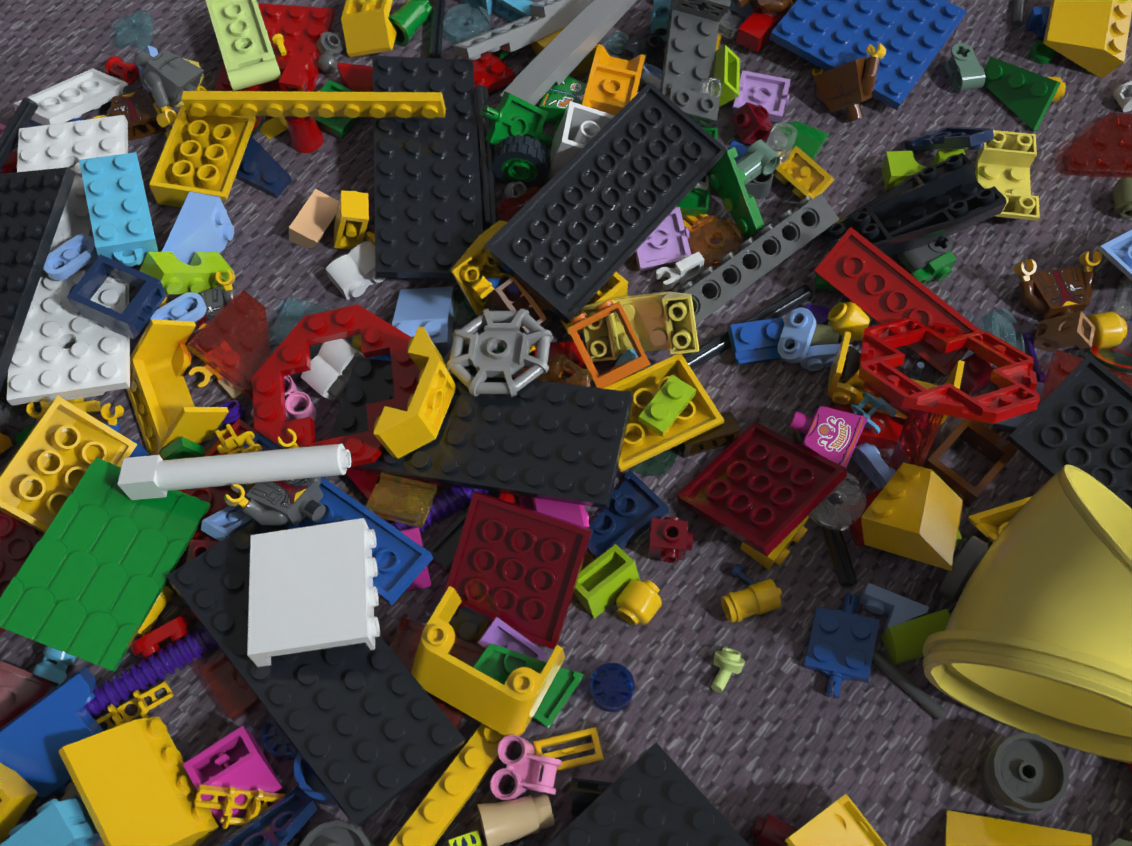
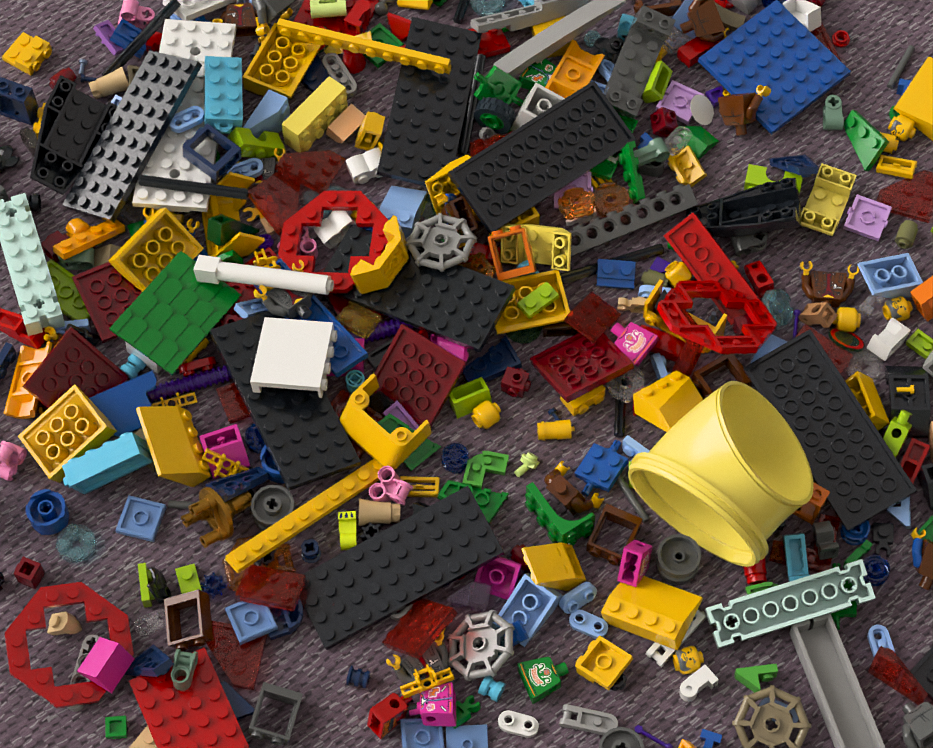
camera: 15 degrees right, 0 degrees up
(97, 354) = (194, 187): none -> black axle
(159, 407) = (223, 229): none -> dark green slope
(265, 216) = (314, 115): none -> light yellow brick
(278, 290) = (311, 168): none -> clear red plate
(288, 150) = (339, 69): none -> light grey plate
(423, 606) = (358, 378): none -> medium azure wheel
(654, 687) = (482, 463): none -> bright green plate
(684, 746) = (488, 501): none -> green wing
(687, 255) = (584, 207): none -> clear orange plate
(711, 87) = (640, 91): clear hinge -> none
(752, 412) = (592, 317): none -> clear red plate
(794, 98) = (702, 109): none -> white sticker
(799, 333) = (640, 275): light blue plate -> none
(802, 80) = (713, 95): none -> dark purple tile
(804, 379) = (636, 305): none -> tan plate
(805, 703) = (567, 494): none -> reddish brown torso
(815, 773) = (558, 528): none -> green bracket
(878, 404) = (661, 336): medium azure piece -> none
(910, 724) = (619, 517): none -> reddish brown window
(937, 269) = (751, 253): green plate -> none
(961, 298) = (759, 278): none -> red leg
(964, 786) = (635, 556): none -> dark pink torso
(1061, 64) = (902, 127): none -> yellow head
(1067, 188) = (867, 217): none -> lavender plate
(1073, 116) = (894, 167): none -> yellow tile

